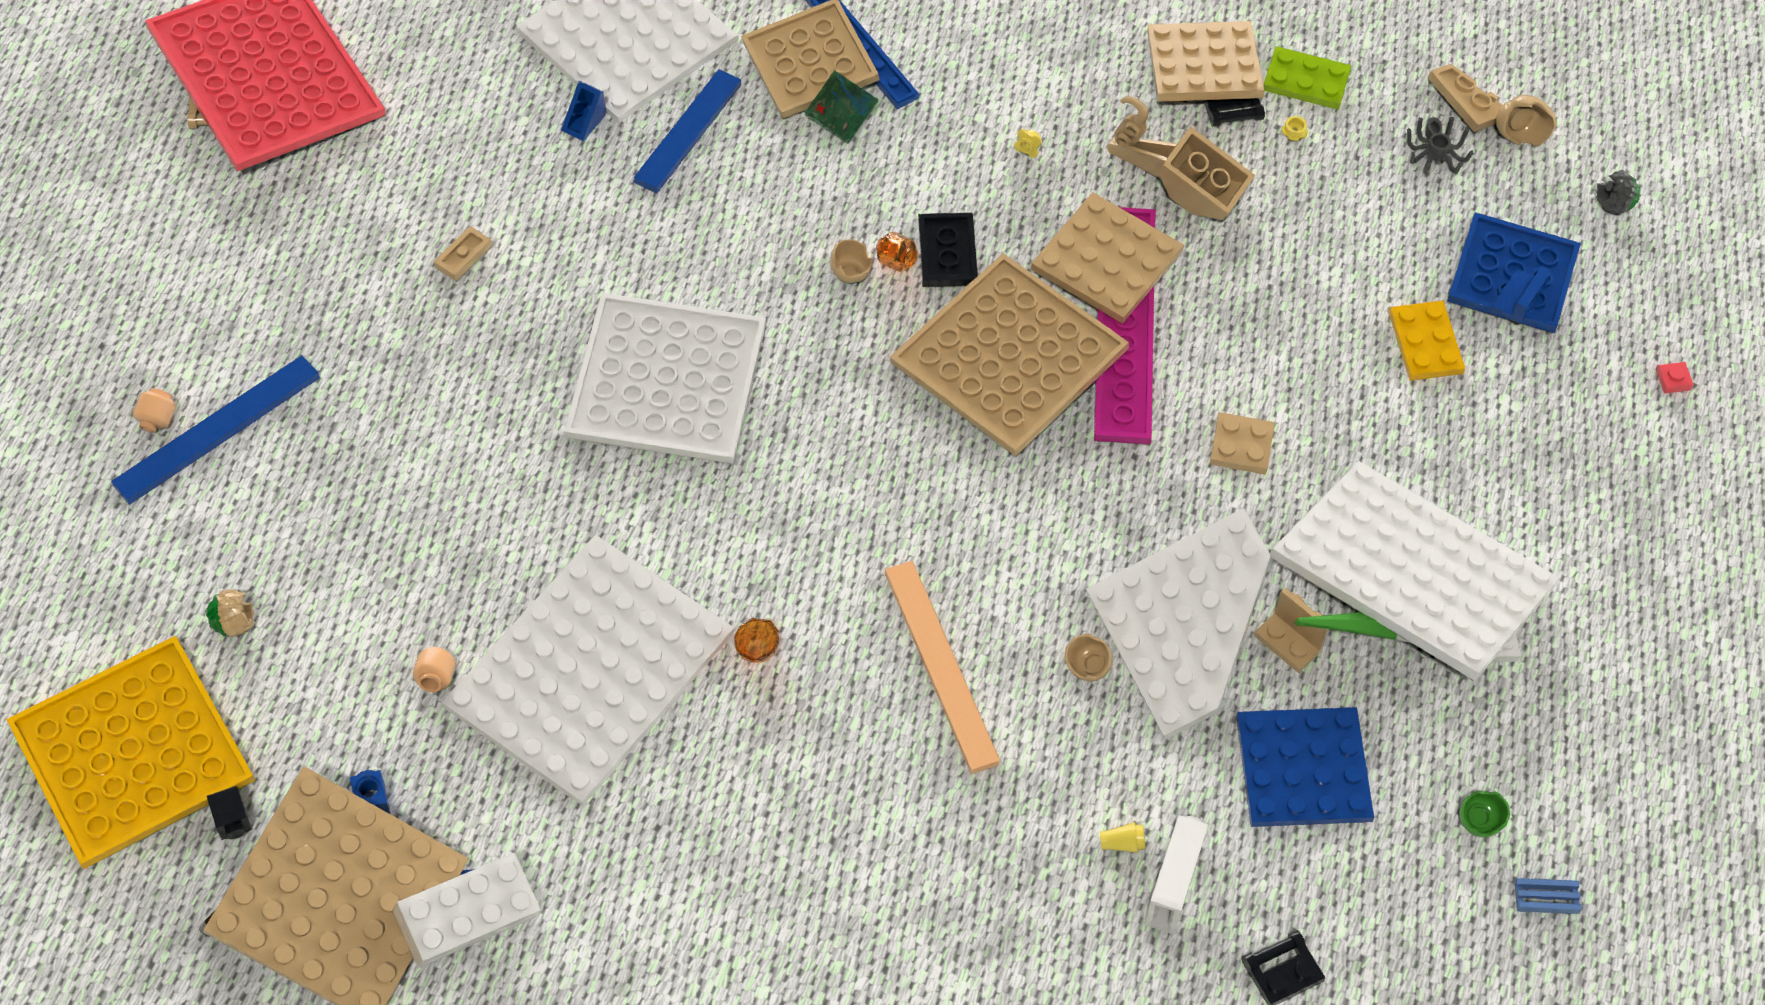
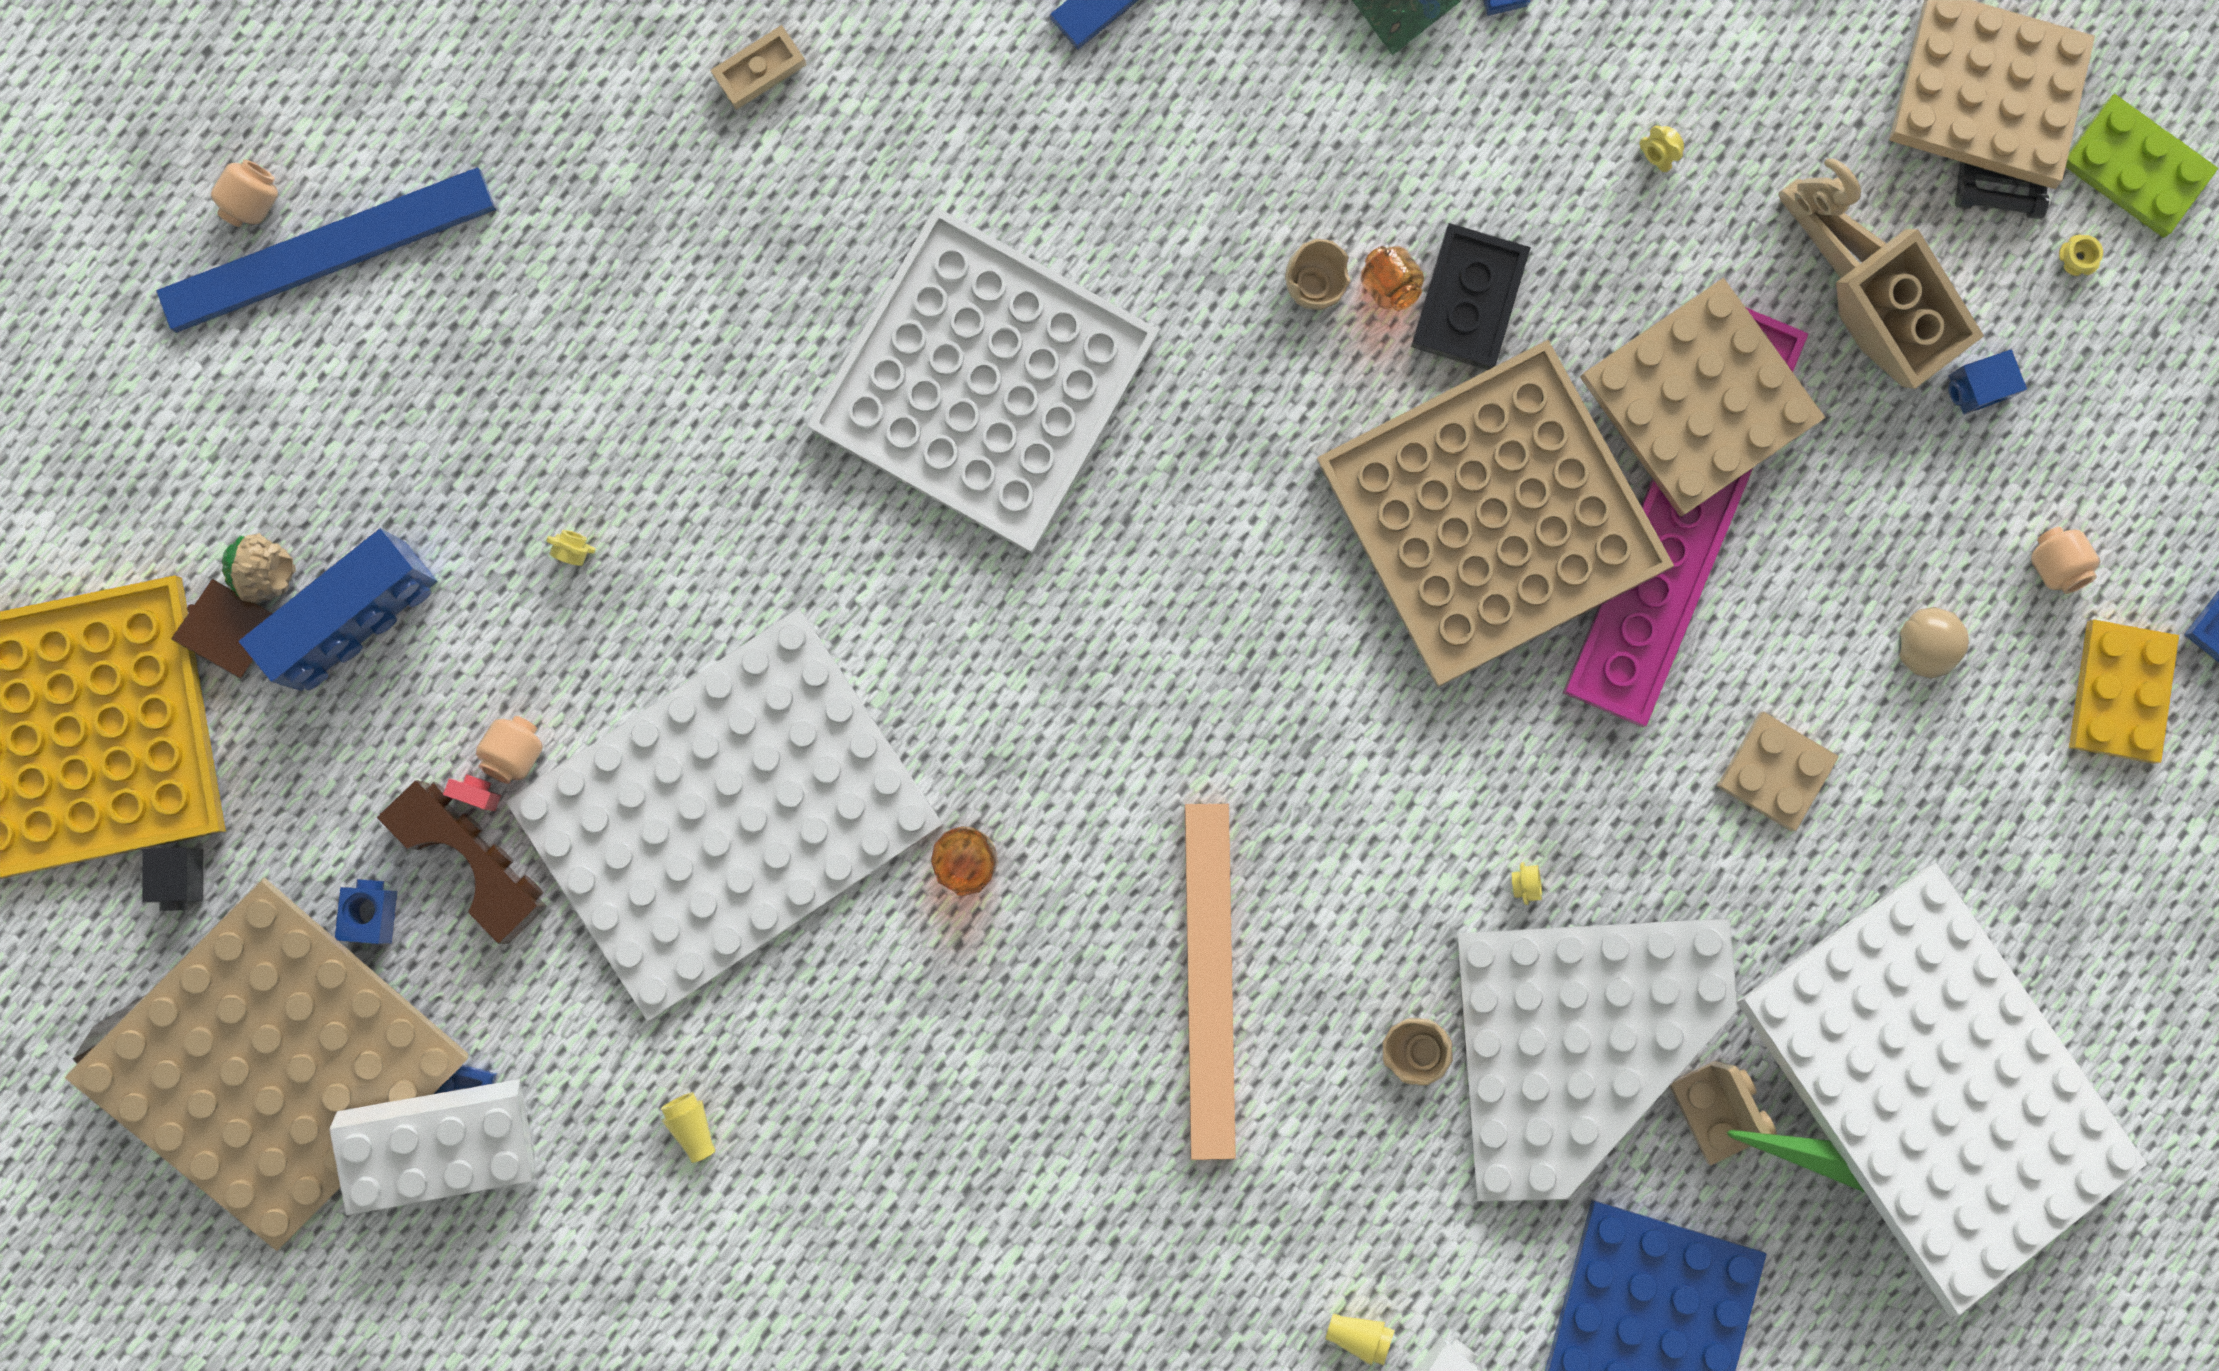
camera: 20 degrees right, 25 degrees up
(219, 658) = (217, 625): none -> reddish brown piece
(296, 617) = (339, 612): none -> blue brick
(392, 727) = (501, 899): none -> reddish brown arch
(418, 702) = (473, 792): none -> coral plate
(434, 544) = (570, 547): none -> light yellow plate
(633, 855) = (689, 1126): none -> light yellow cone
(1117, 548) = (1527, 883): none -> light yellow plate
(1270, 204) = (1986, 382): none -> blue brick
(1303, 347) = (1933, 642): none -> tan hair
(1358, 280) = (2065, 560): none -> light nougat head

